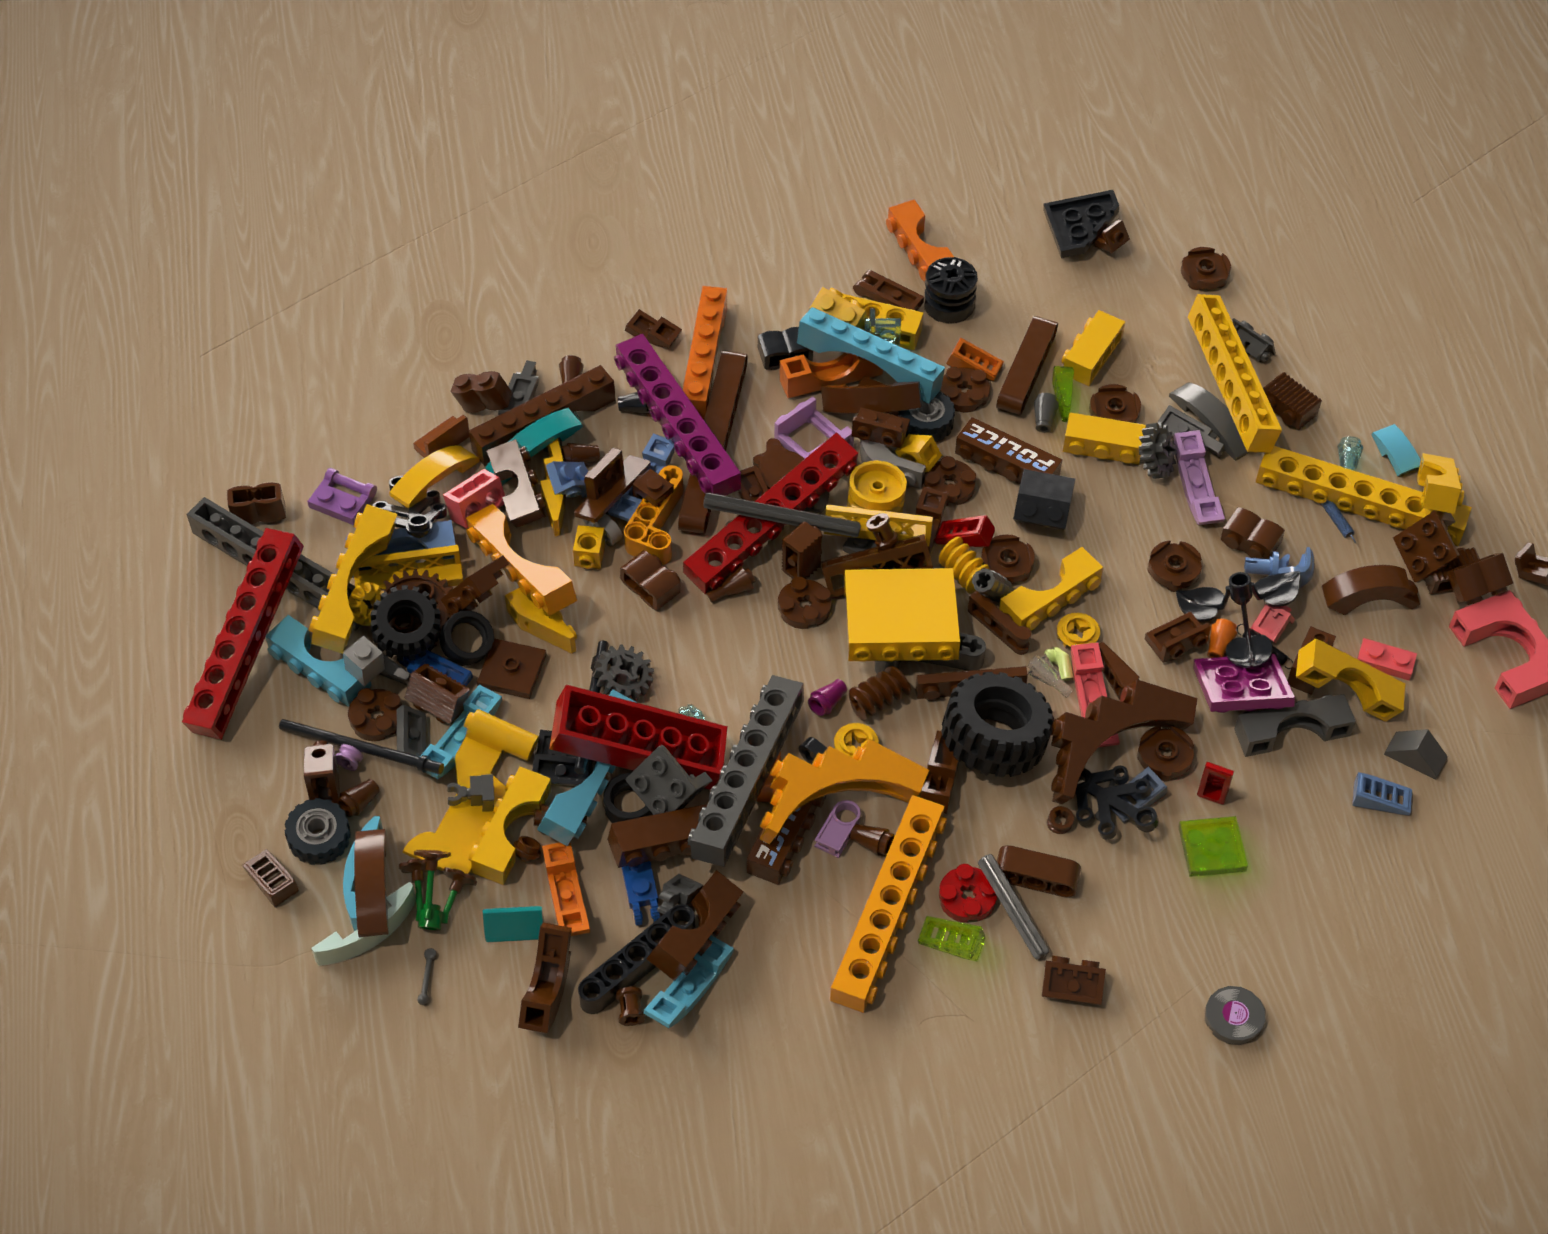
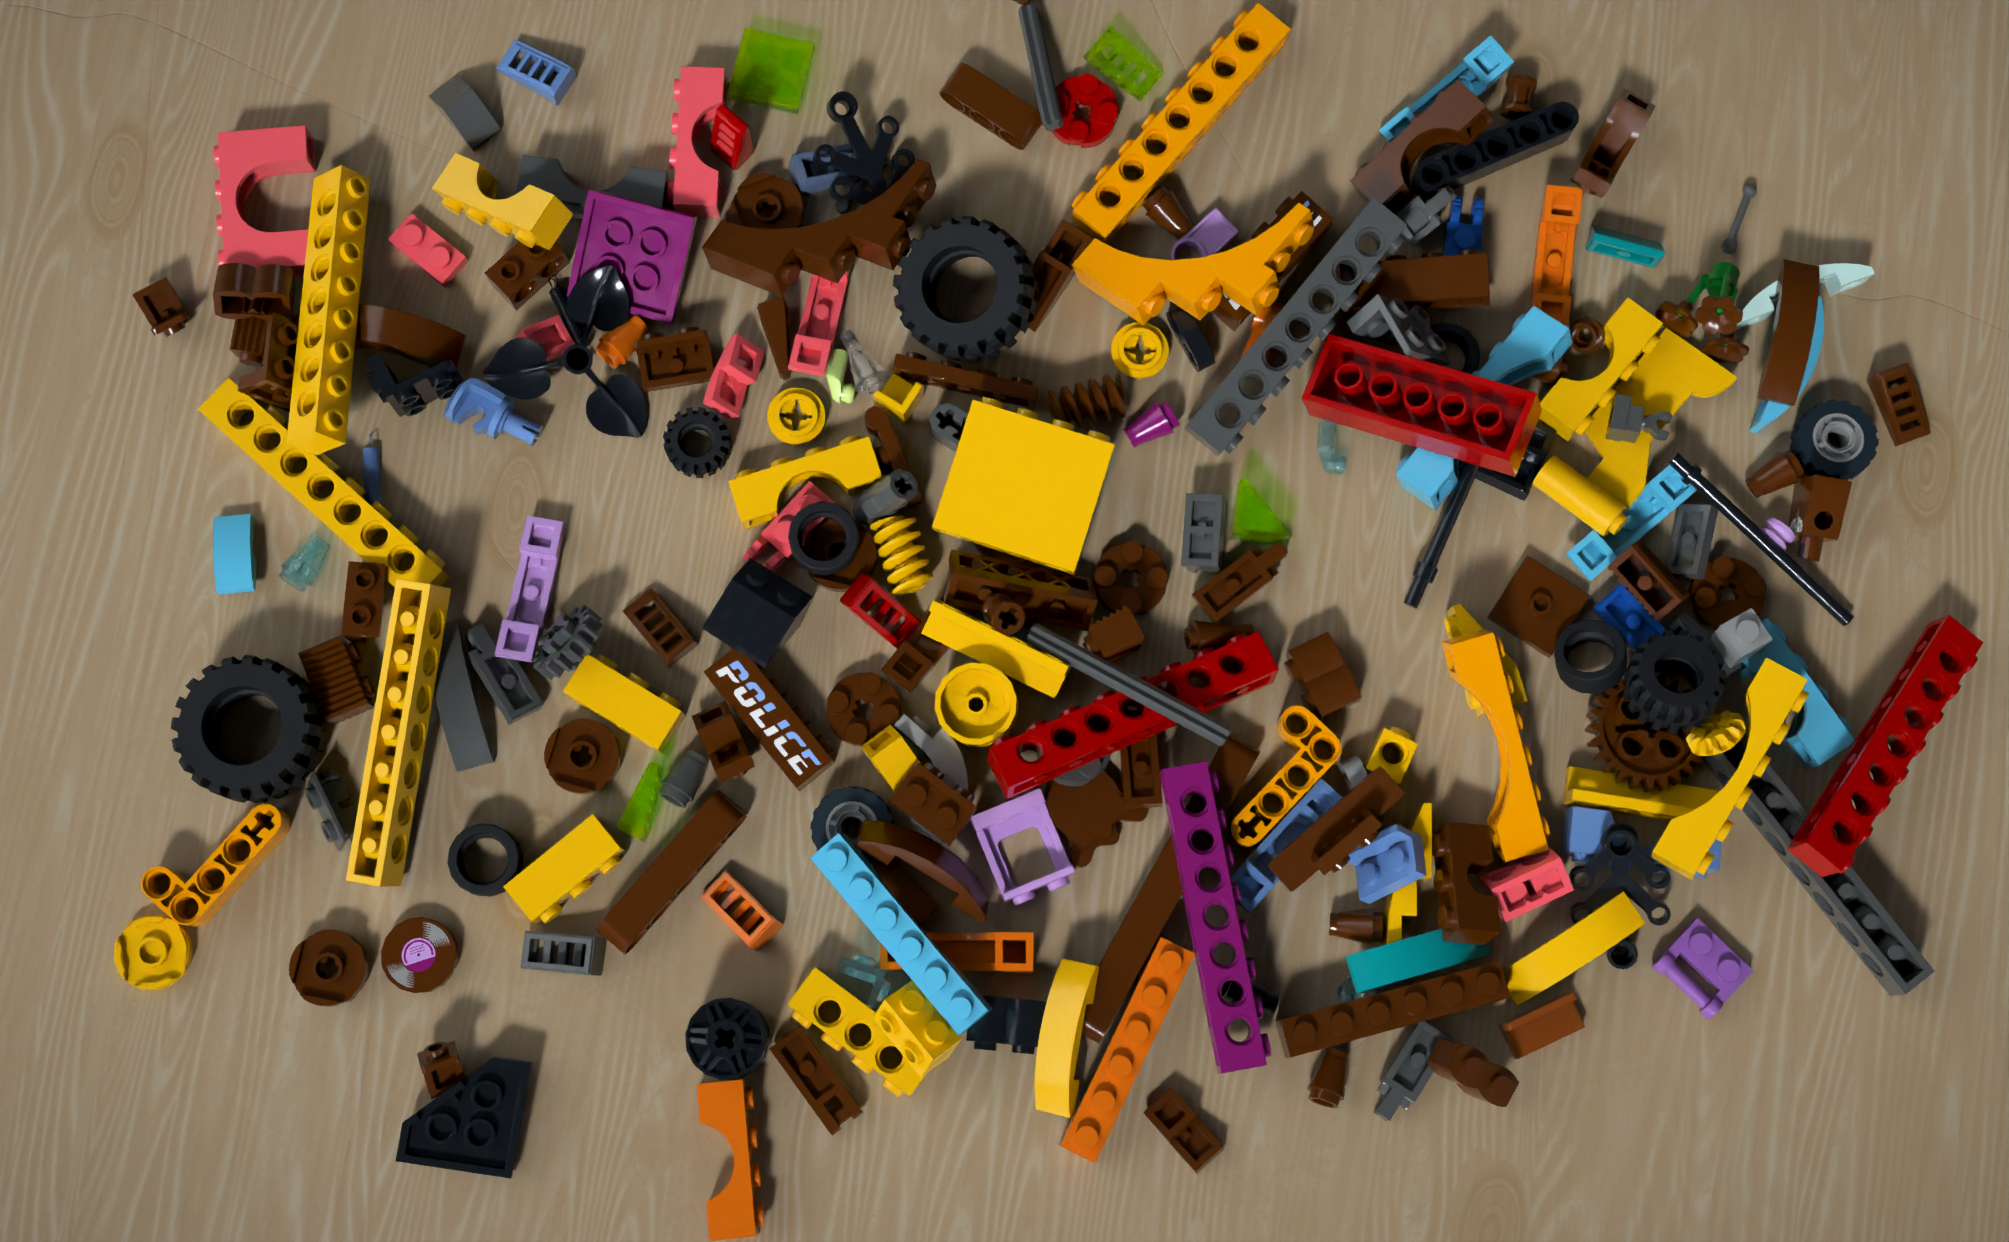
camera: 165 degrees left, 25 degrees up
(257, 503) = (1824, 974): reddish brown brick -> none
(475, 587) = (1573, 711): reddish brown plate -> none
(623, 672) = (1416, 535): dark grey gear -> none
(652, 487) = (1282, 809): reddish brown bracket -> none
(728, 620) = (1238, 581): none -> reddish brown hinge
(731, 658) = (1254, 519): none -> clear neon green slope
(750, 343) = (1061, 1036): none -> yellow slope
(763, 637) = (1204, 532): none -> dark grey hinge
(968, 378) = (767, 845): reddish brown plate -> none
(1014, 652) = (899, 398): none -> yellow panel
(1022, 568) = (816, 511): none -> black tyre
(1026, 428) = (723, 742): none -> reddish brown brick
(1047, 565) = (778, 530): none -> coral hinge
(1059, 828) = (940, 158): reddish brown bush -> none
(1064, 311) = (593, 956): none -> dark grey slope
(1107, 481) = (680, 648): none -> reddish brown slope
(1134, 636) = (734, 371): none -> coral slope
(1141, 583) = (691, 421): none -> black tyre
(1149, 327) = (461, 844): none -> black tyre
(1156, 290) = (419, 955): none -> reddish brown tile
(1173, 577) = (644, 481): reddish brown plate -> none
(1252, 534) = (503, 480): reddish brown brick -> none
(1254, 808) = (695, 184): none -> coral arch
(1299, 436) = (363, 601): none -> reddish brown bracket
(1305, 275) = (223, 859): none -> light orange beam
(1312, 251) = (153, 952): none -> yellow tile
(1329, 333) = (208, 704): none -> black tyre
(1347, 554) = (414, 393): none -> black bracket
(1425, 580) = (329, 311): none -> yellow brick
(1440, 482) = (208, 480): yellow arch -> none

